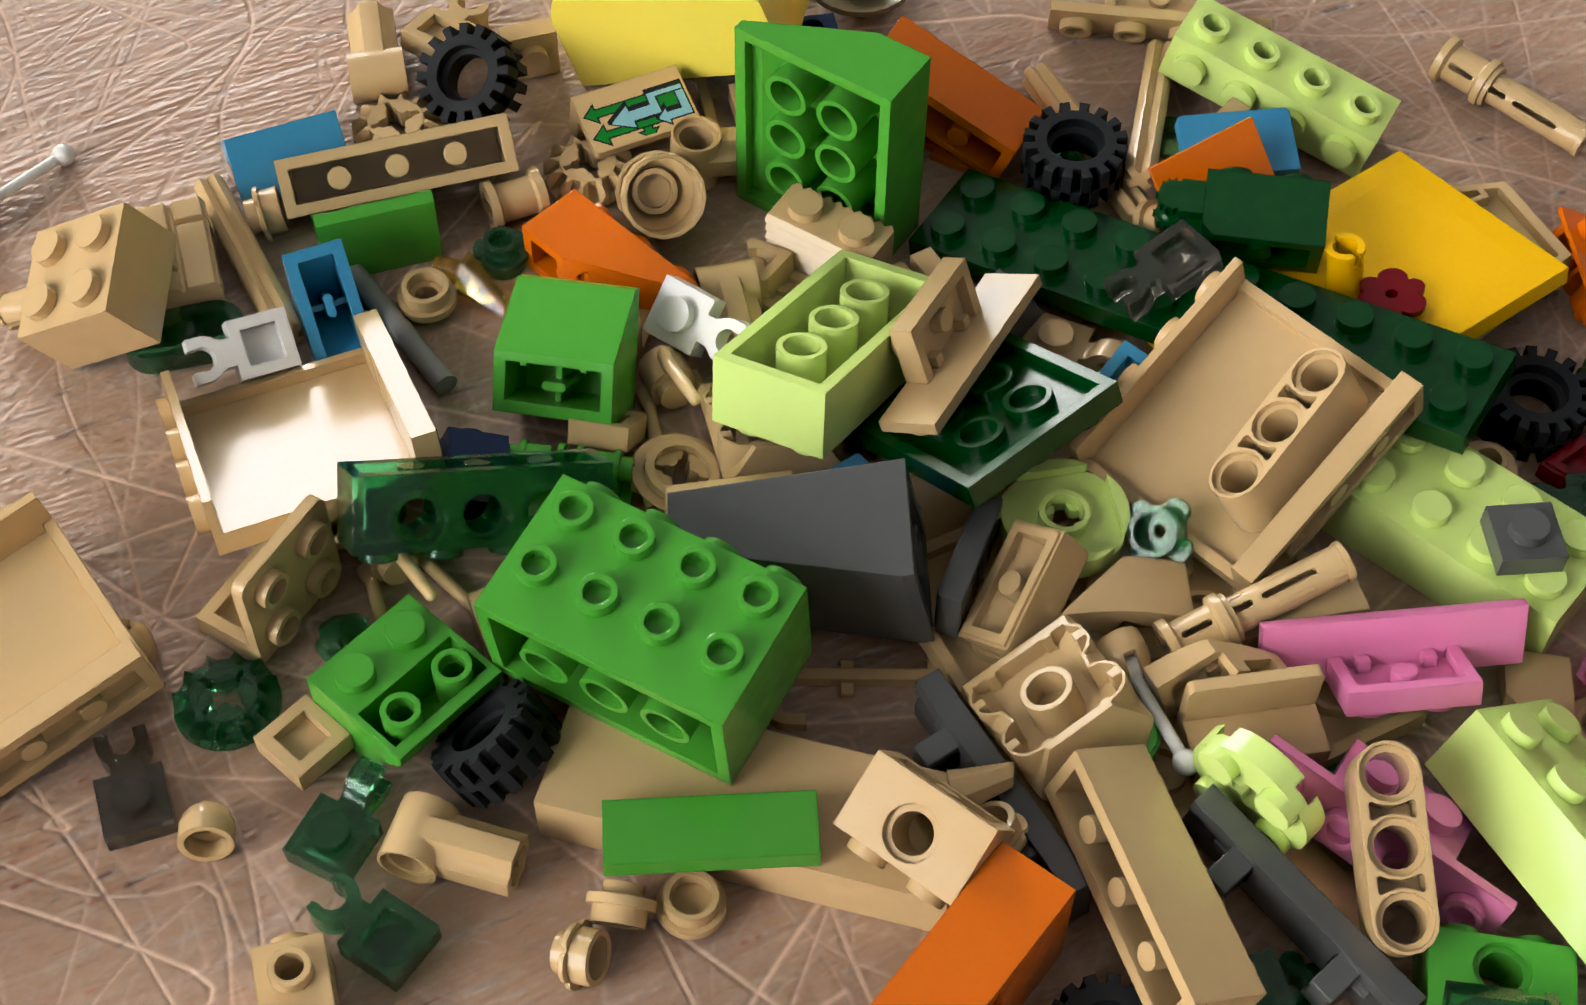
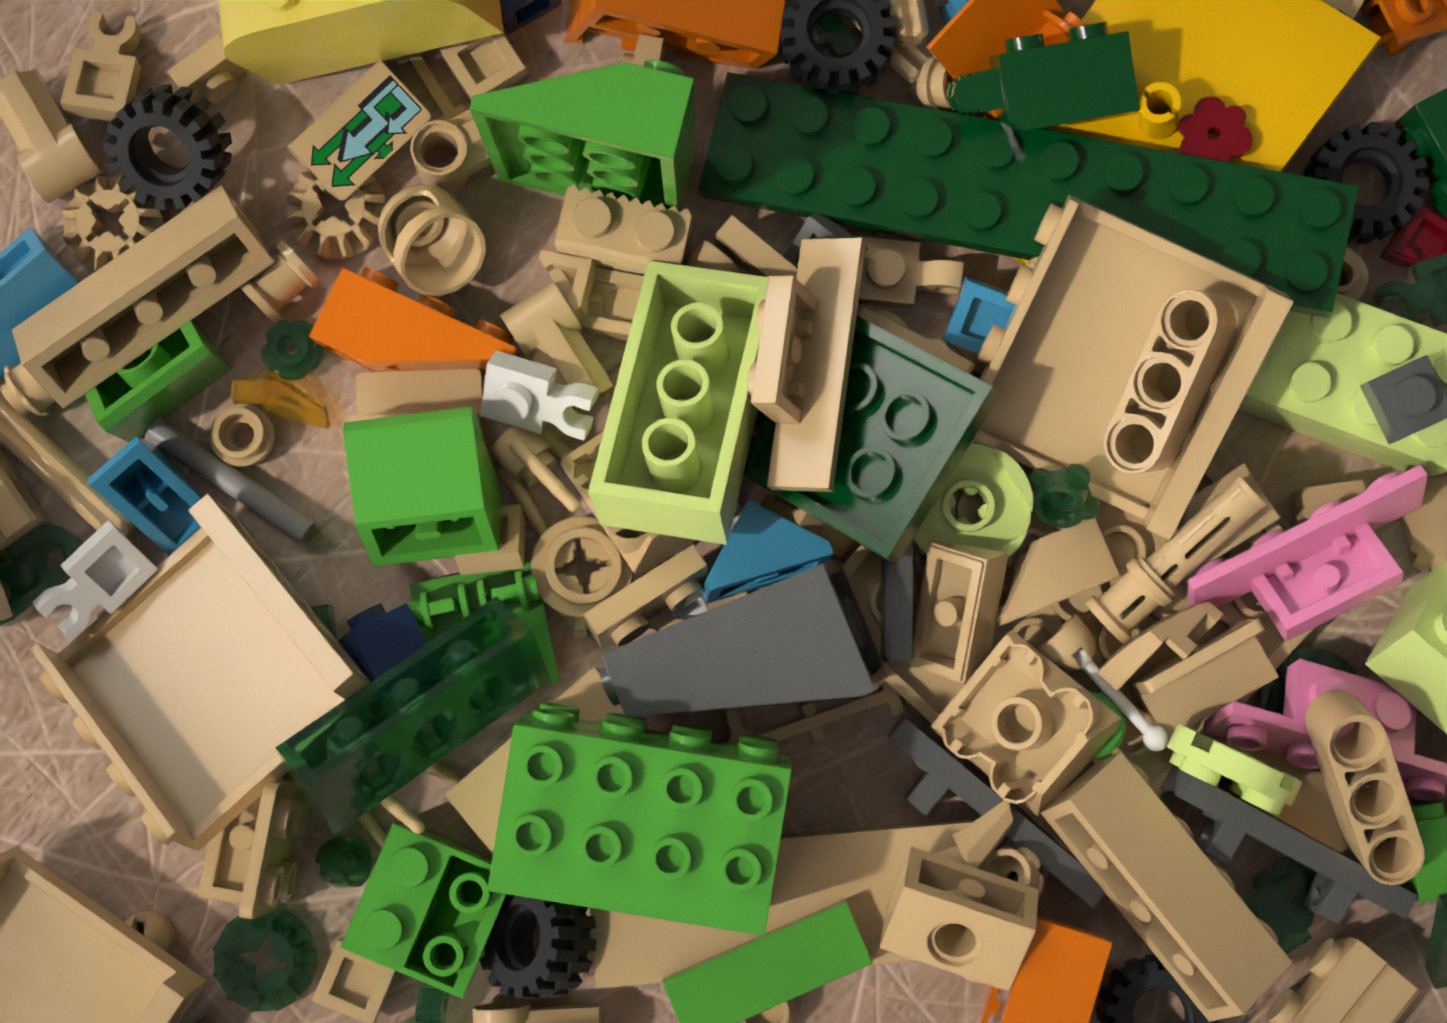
camera: 20 degrees left, 30 degrees up
(1166, 265) = (990, 180): clear smoke plate -> none

